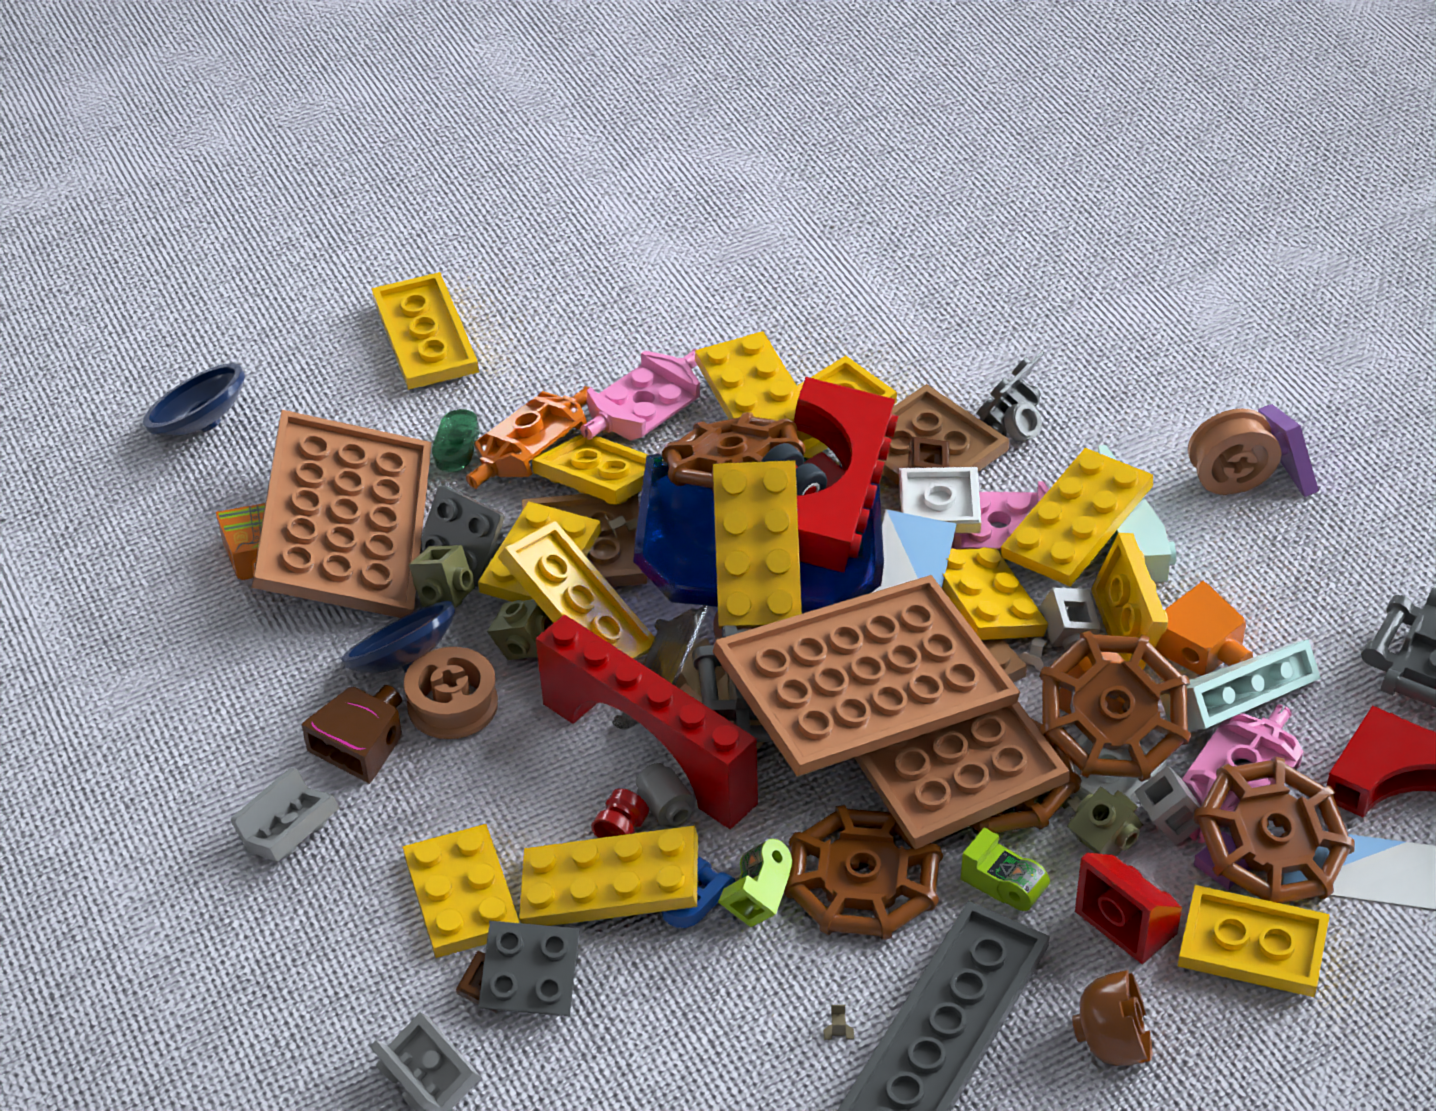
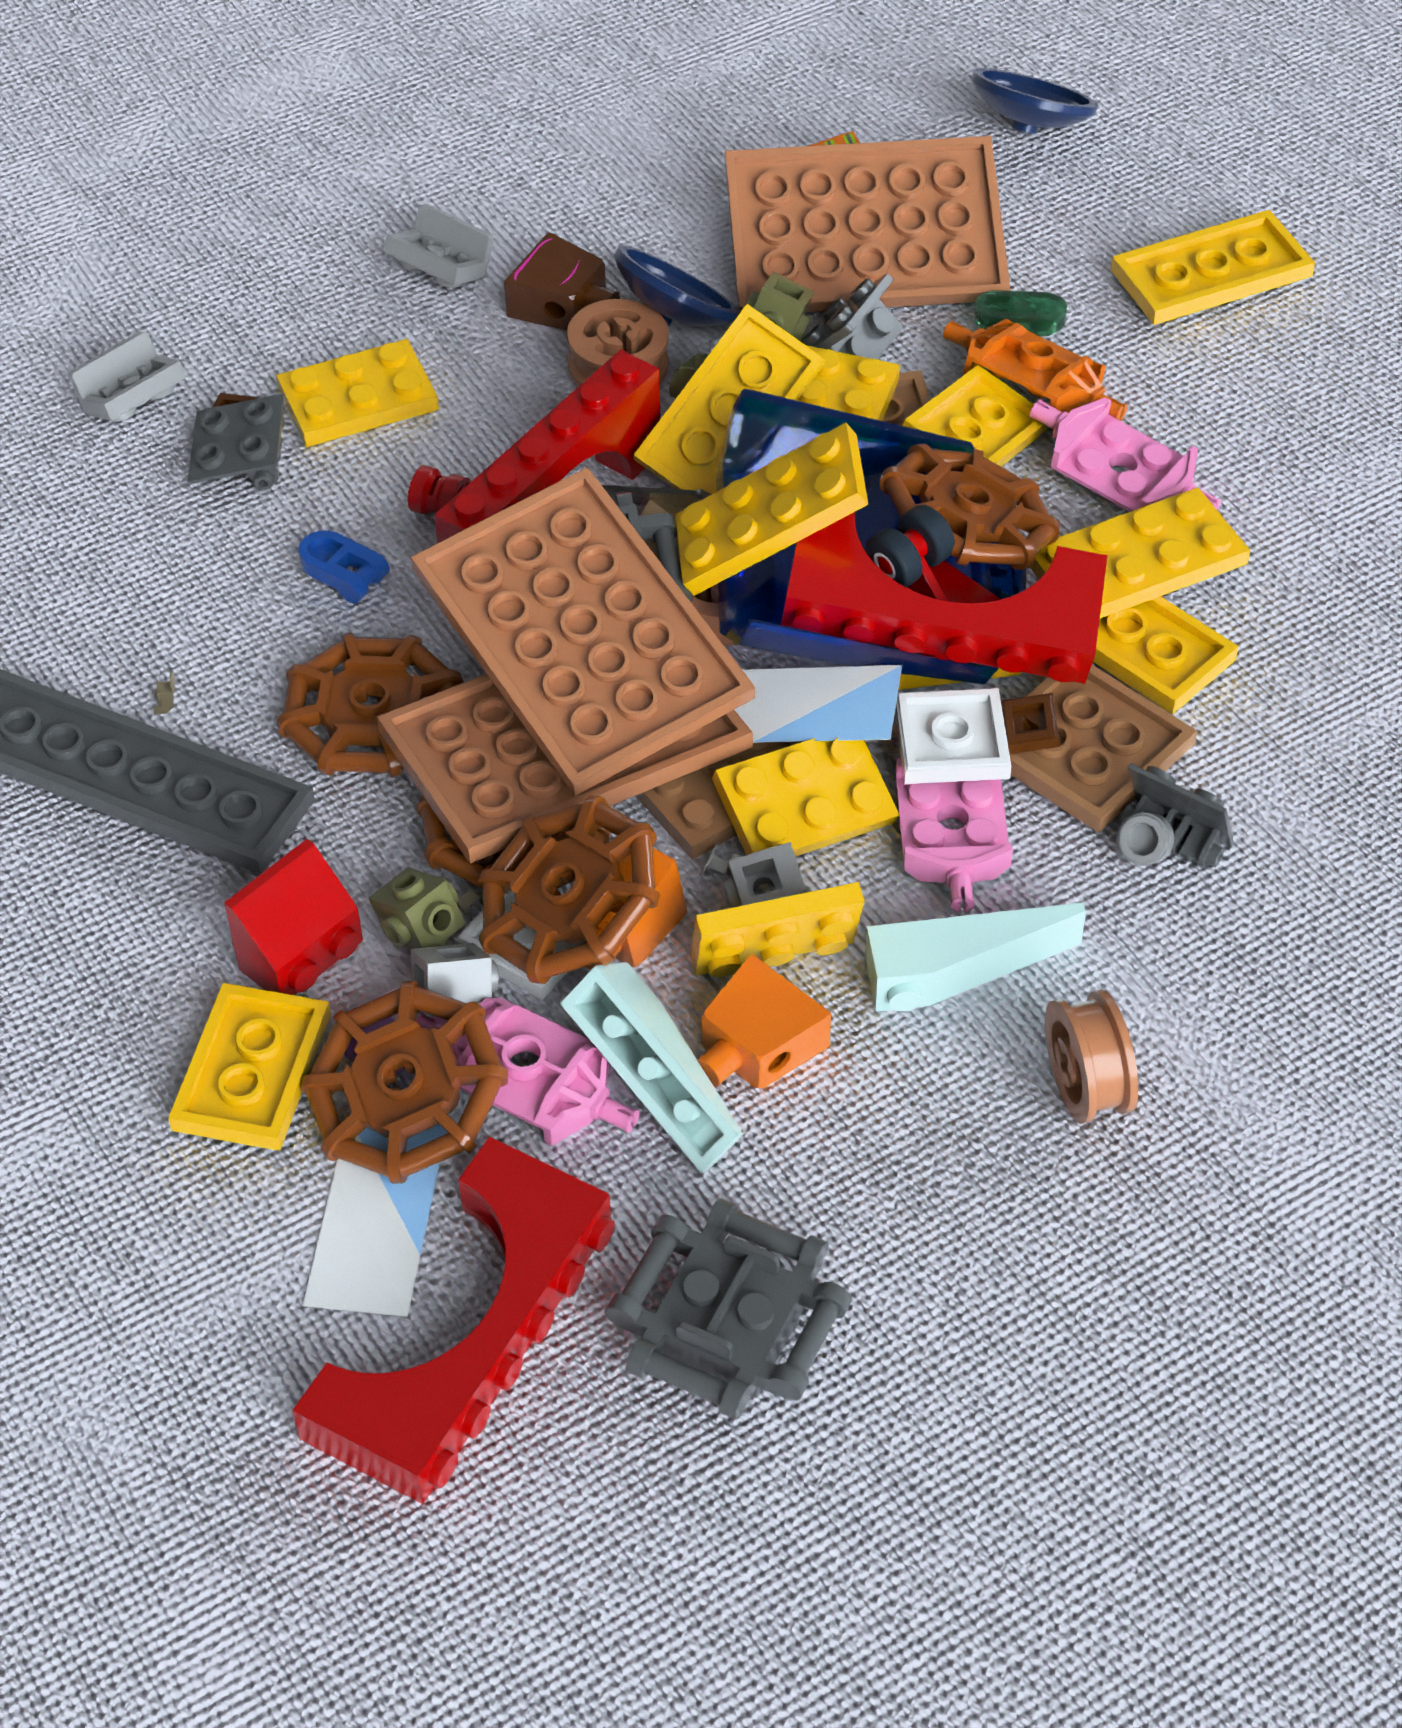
camera: 85 degrees right, 5 degrees up
(610, 877) = (355, 490): yellow plate -> none
(761, 883) = (361, 612): leg -> none
(1002, 872) = (361, 822): lime leg -> none
(1077, 516) = (936, 875): yellow plate -> none
(1114, 1020) = (126, 919): dark orange cylinder -> none
(1293, 449) = (1136, 1134): medium lavender wing -> none

